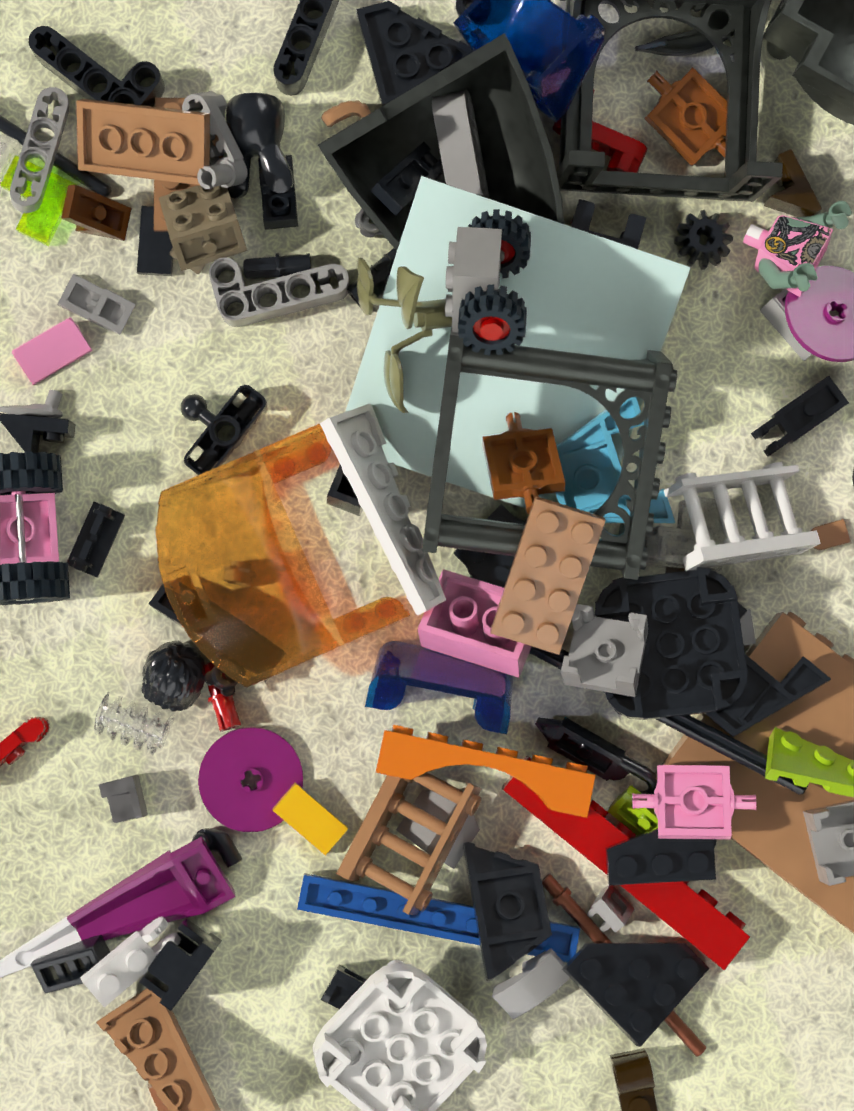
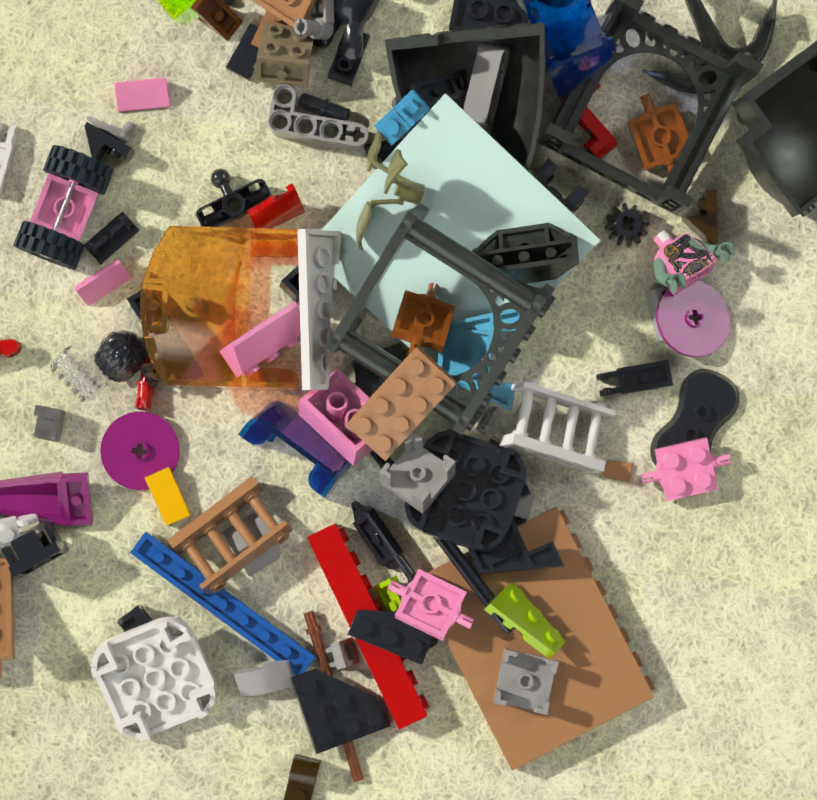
camera: 30 degrees right, 0 degrees up
(96, 304) = (187, 76): light grey slope -> none
(110, 598) = (102, 282): none -> bright pink slope
(220, 842) = (100, 484): black arm -> none
(279, 412) = (277, 209): none -> red slope
(340, 577) = (264, 341): none -> bright pink slope
(343, 111) = (421, 21): medium nougat hair -> none
(382, 229) = (402, 117): none -> dark azure plate
(477, 306) = (445, 181): brick -> none
(506, 907) = (271, 618): black wing -> none
(558, 788) = (254, 484): orange arch -> none
(618, 317) = (531, 252): none -> pearl dark grey wedge

